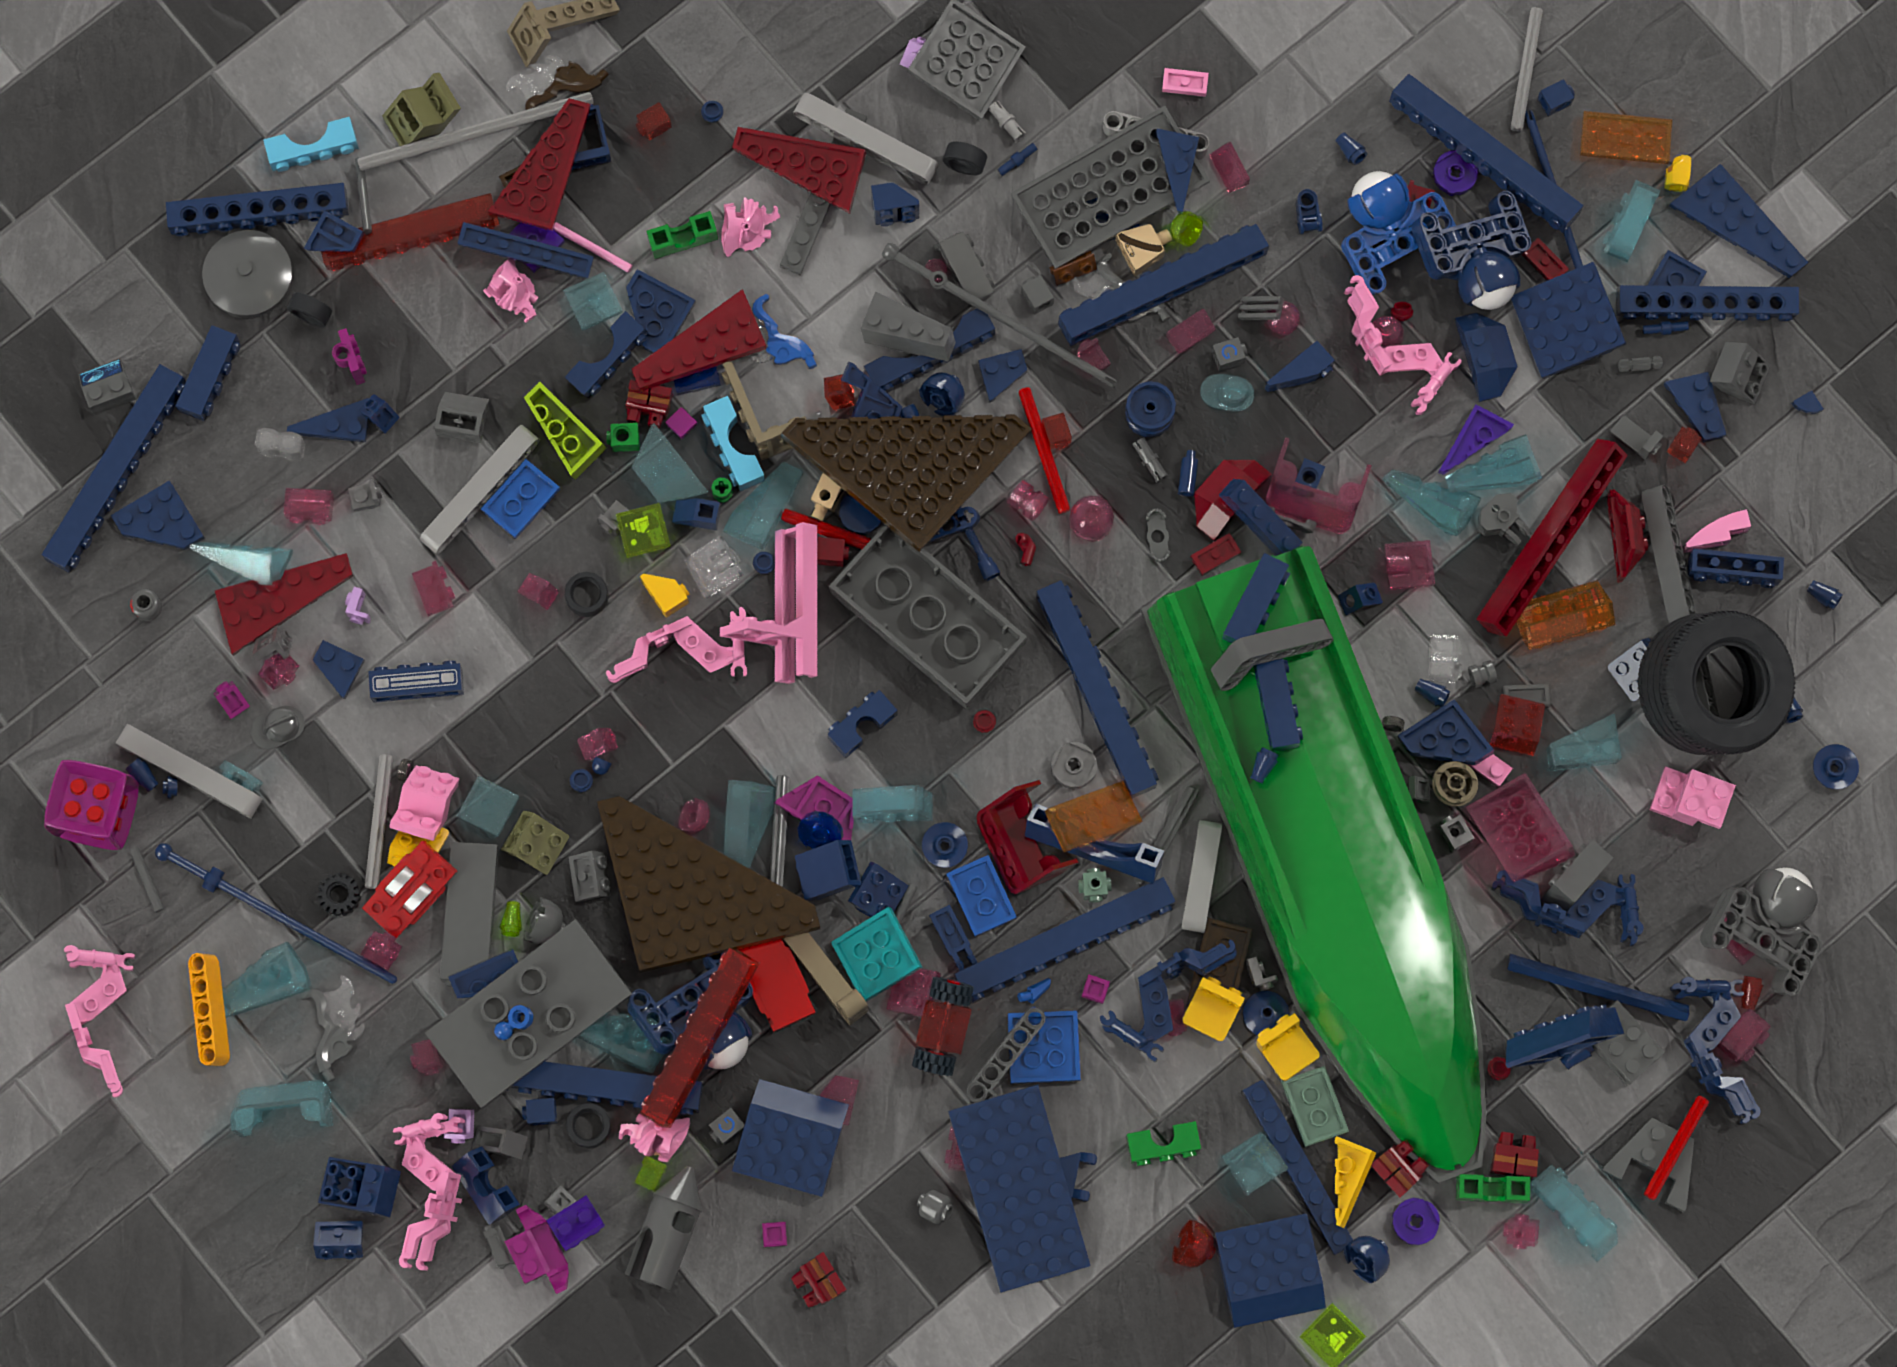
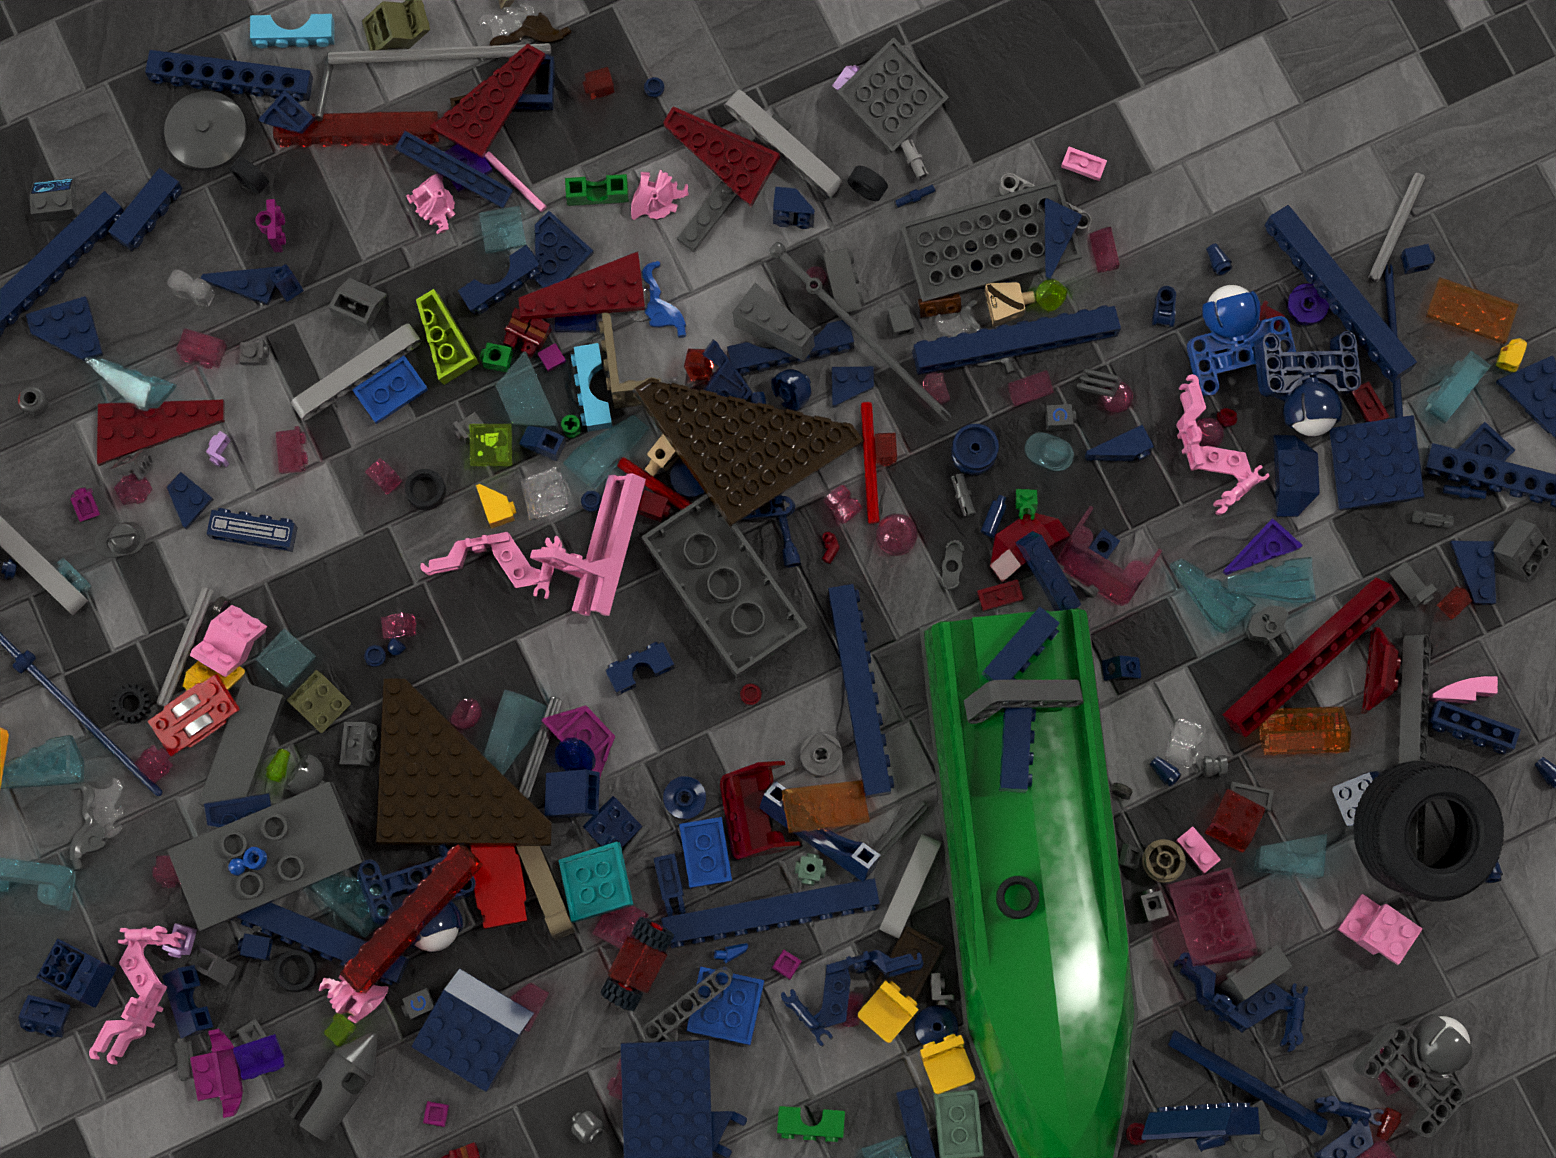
camera: 15 degrees right, 0 degrees up
(893, 804) = (647, 748): clear light blue wedge -> none
(1218, 451) = (1026, 502): none -> green plate
(1263, 765) = (990, 800): dark blue cone -> none
(1318, 837) = (1017, 880): none -> black tyre
(1409, 565) = (1174, 649): clear pink plate -> none
(1447, 737) = (1167, 815): dark blue plate -> none
(1842, 758) = (1530, 932): dark blue dish -> none

